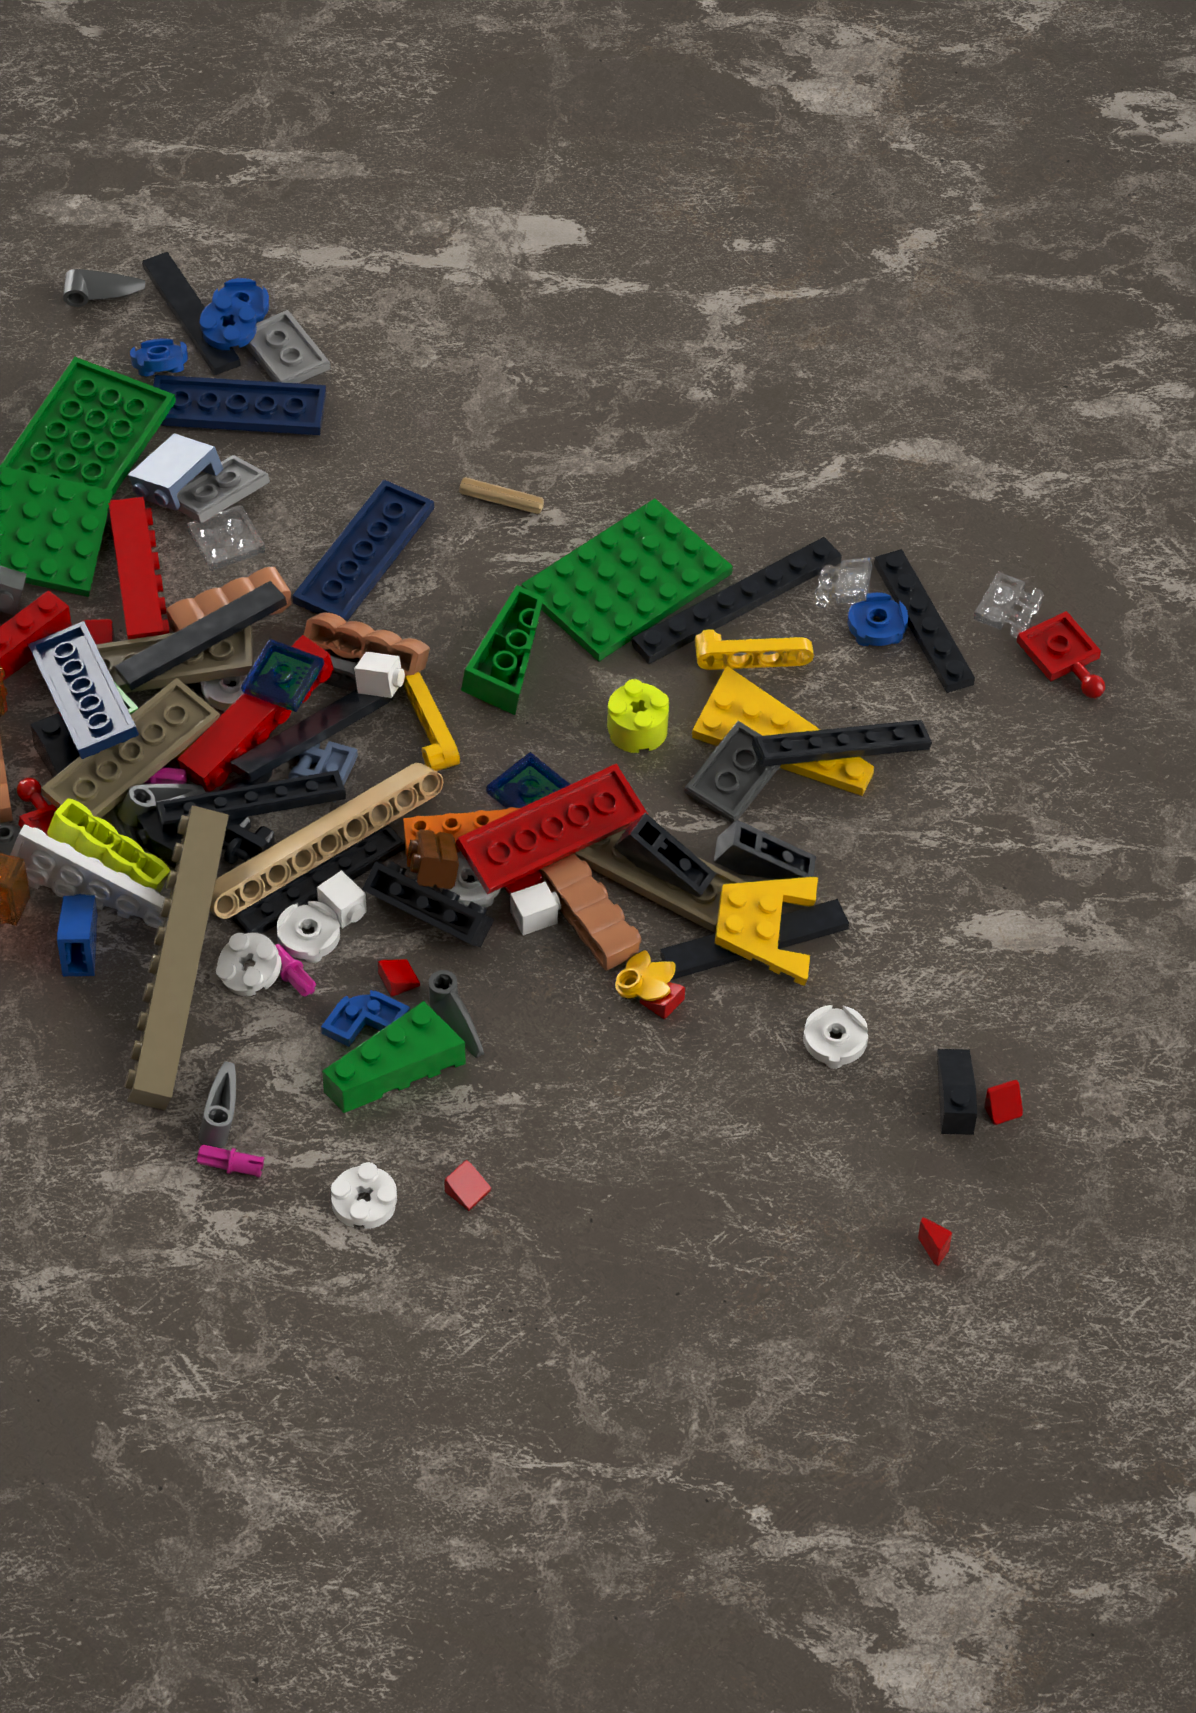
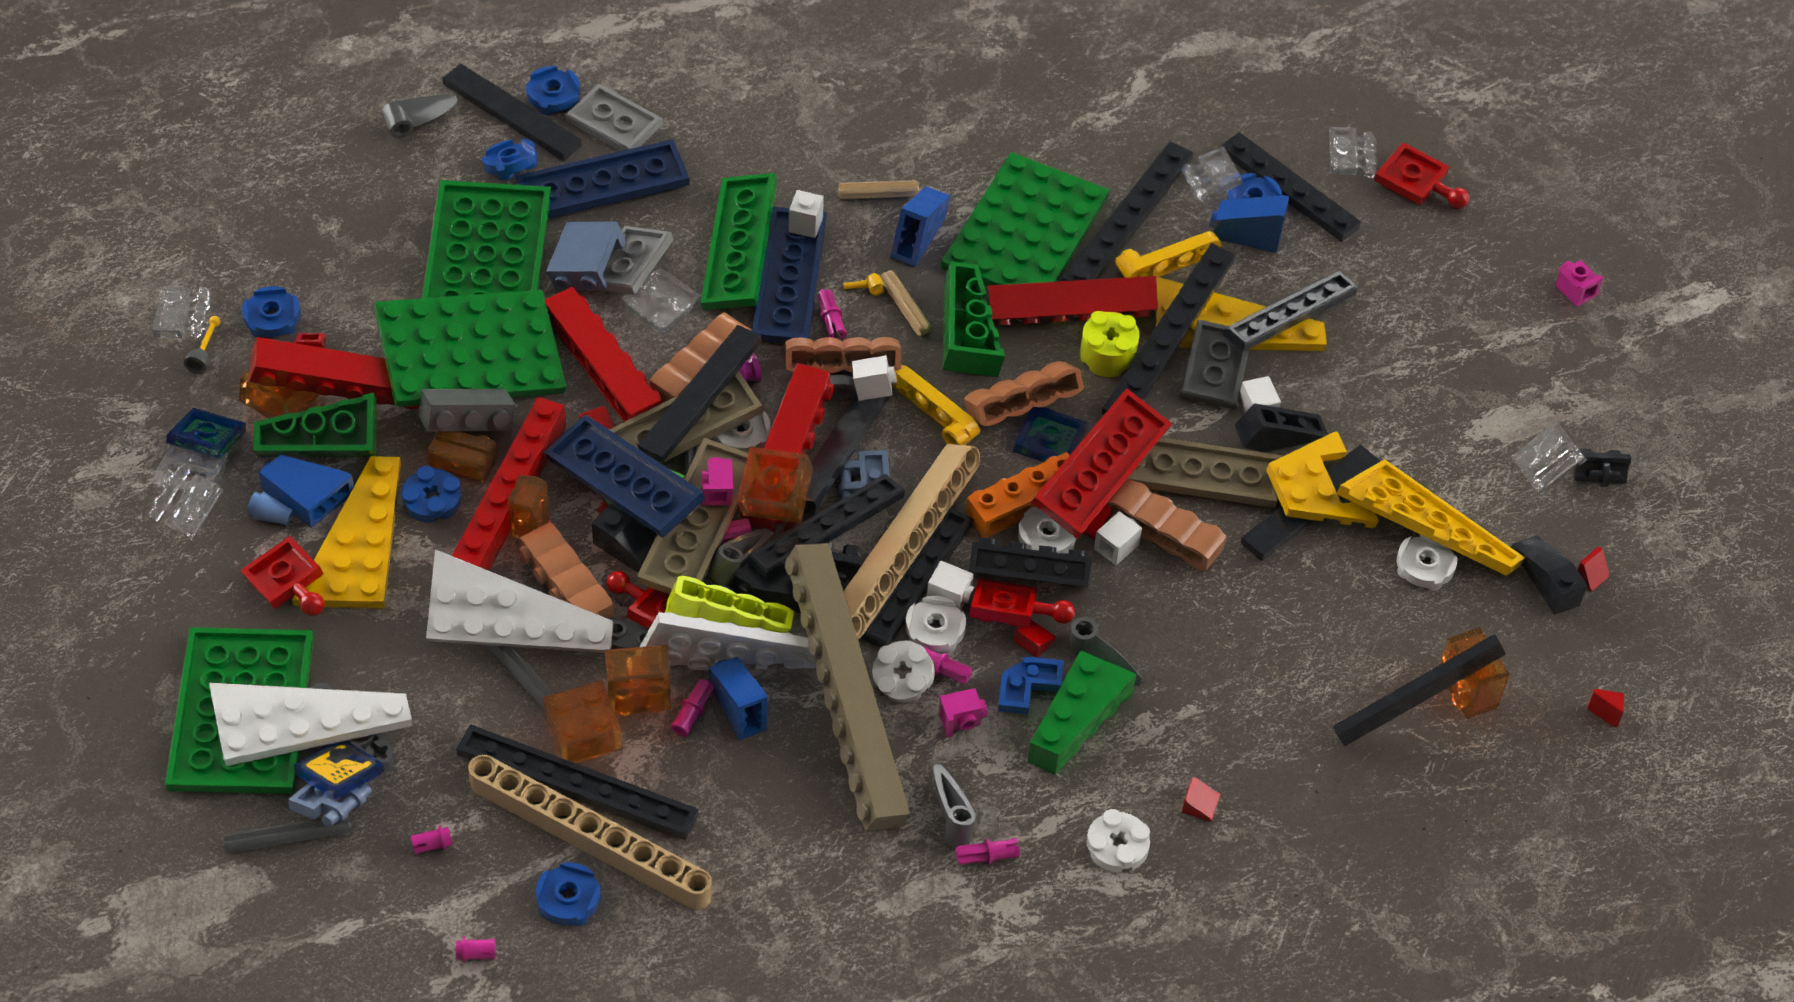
camera: 25 degrees left, 0 degrees up
(33, 930) = (692, 707): none -> dark pink axle
(160, 723) = (718, 482): none -> dark pink brick
(214, 743) = (775, 484): none -> clear orange brick
(224, 310) = (560, 97): blue plate -> none
(268, 628) = (751, 370): none -> magenta wheel
(282, 675) = (799, 404): tile -> none
(282, 1020) = (961, 711): none -> dark pink brick
(331, 503) = (739, 242): none -> green plate
(382, 603) = (831, 314): none -> dark pink axle
(390, 936) = (1014, 604): none -> red plate
(405, 495) = (806, 213): none -> white brick
(434, 859) = (1022, 522): reddish brown brick -> none
(441, 584) = (872, 282): none -> yellow hand
(463, 614) = (905, 303): none -> tan axle
(517, 540) = (919, 224): none -> blue slope
(531, 737) = (1023, 393): none -> nougat brick
(624, 661) = (1071, 299): none -> red brick
(645, 978) = (1247, 564): yellow plate -> none
(663, 856) = (1205, 455): black slope -> none
(666, 1005) = (1266, 578): red slope -> none
(713, 719) = (1174, 324): none -> black plate
(732, 1153) = (1419, 690): none -> black tile
(760, 813) = (1259, 392): none -> white brick
(805, 1158) = (1482, 689): none -> clear orange brick
(853, 979) = (1410, 504): none -> yellow wing
(855, 642) = (1251, 221): none -> blue slope
(1018, 968) = (1543, 452): none -> clear plate
(1077, 1004) = (1603, 467): none -> black hips
(1169, 805) = (1578, 282): none -> dark pink brick

